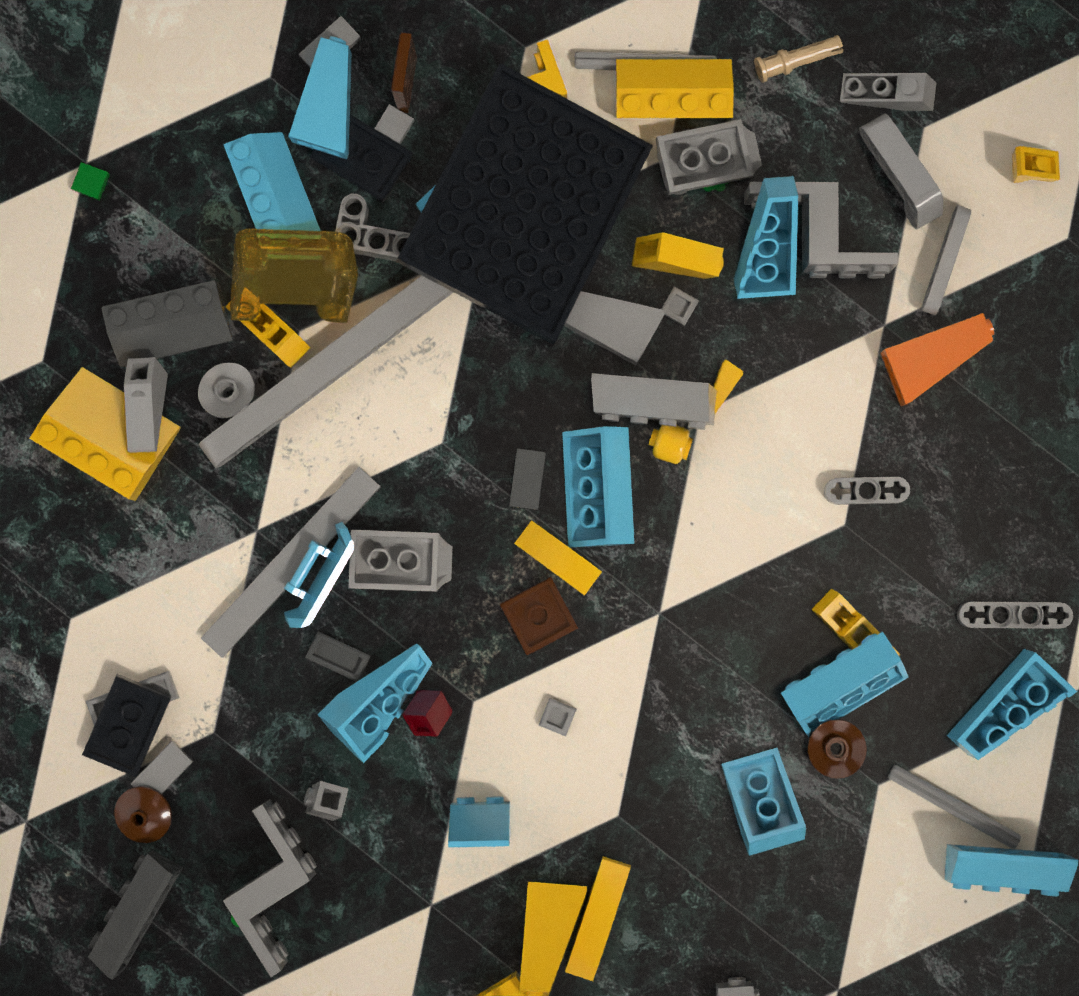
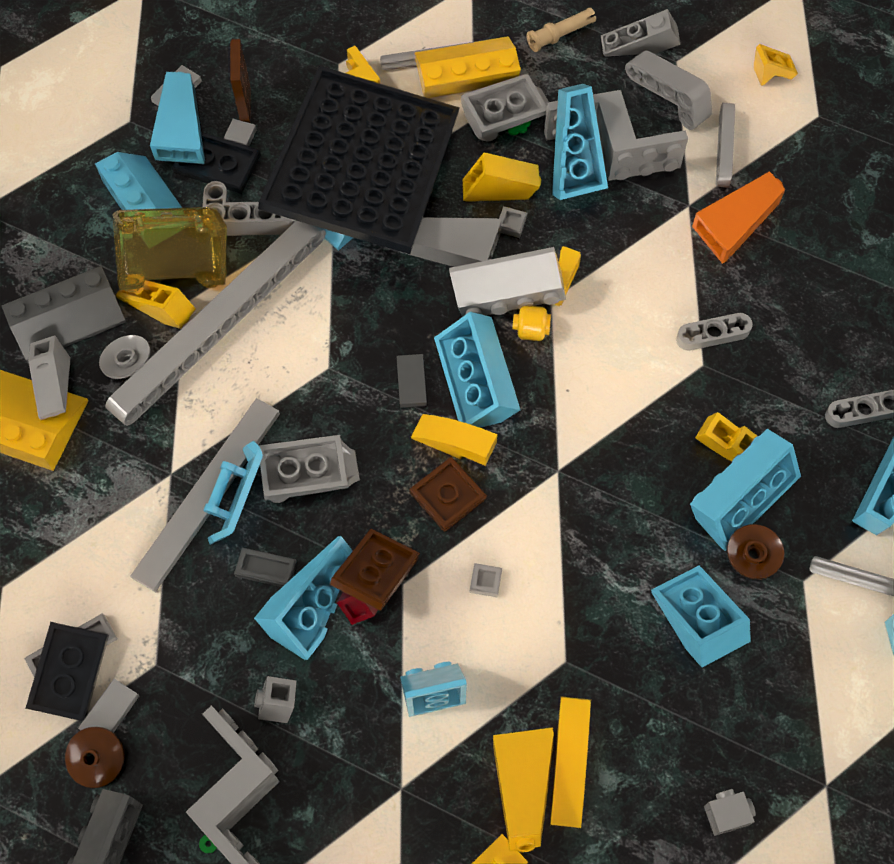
camera: 15 degrees left, 20 degrees down
(447, 688) = (375, 569): none -> reddish brown tile

